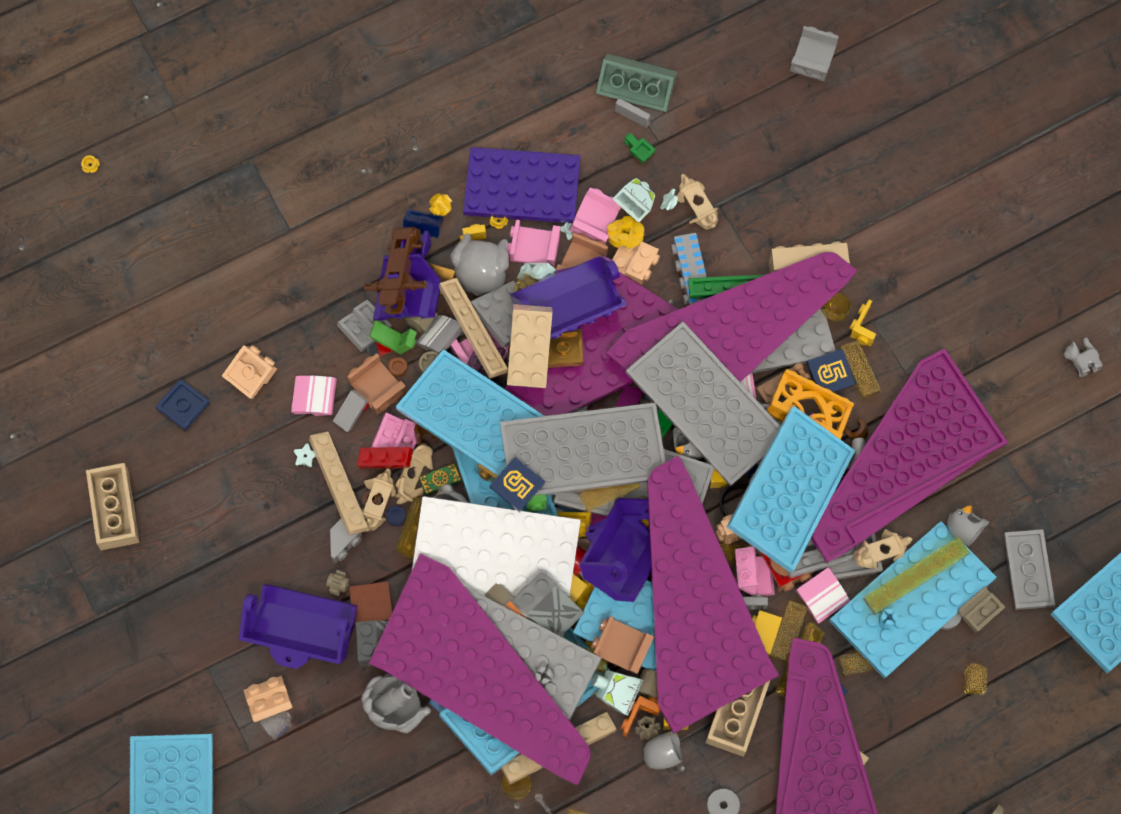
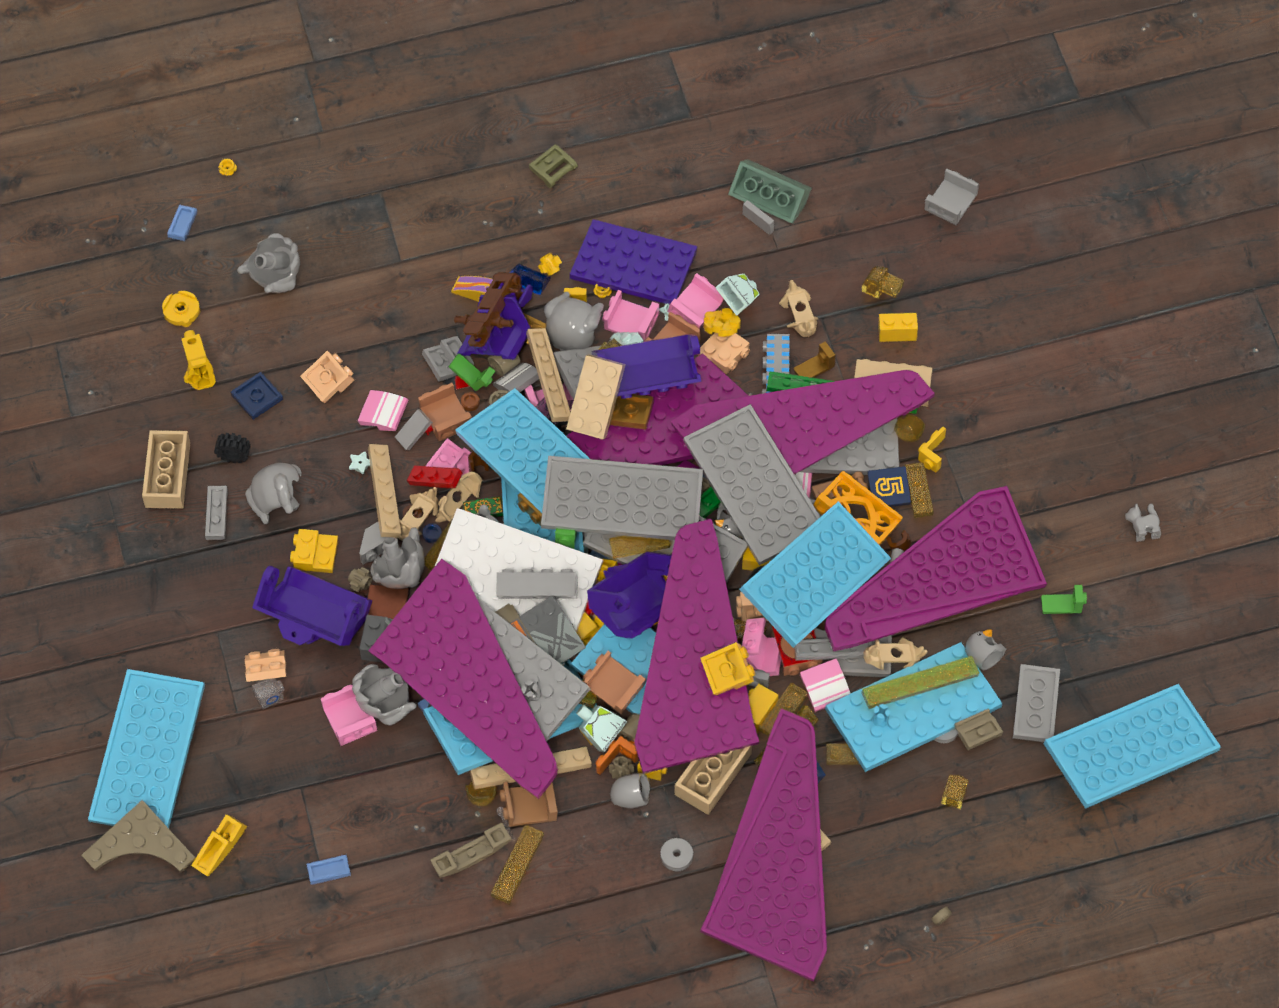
camera: 15 degrees right, 10 degrees down
(59, 233) = (182, 222): none -> medium blue tile
(88, 335) = (184, 317): none -> yellow plate
(119, 392) = (199, 368): none -> yellow piece
(165, 262) = (273, 264): none -> light grey piece
(173, 469) = (232, 448): none -> black tyre
(174, 541) = (216, 512): none -> light grey plate
(227, 507) = (273, 489): none -> light grey piece
(284, 561) = (314, 551): none -> yellow plate
(361, 732) = (346, 716): none -> bright pink panel
(371, 244) = (471, 286): none -> slope
(375, 560) = (400, 566): none -> light grey piece
(412, 93) = (549, 161): none -> olive plate
(517, 484) = (549, 513): dark blue tile -> none
(522, 561) = (536, 584): none -> light grey brick
(562, 793) = (525, 809): none -> medium nougat panel
(639, 149) = (756, 251): green plate -> none
(669, 200) = (773, 302): light aqua plate -> none
(728, 257) = (819, 364): none -> pearl gold bracket
(734, 610) = (728, 668): none -> yellow plate
(769, 157) = (881, 281): none -> clear yellow brick
(797, 202) = (898, 327): none -> yellow brick
(1029, 458) = (1064, 603): none -> bright green bracket

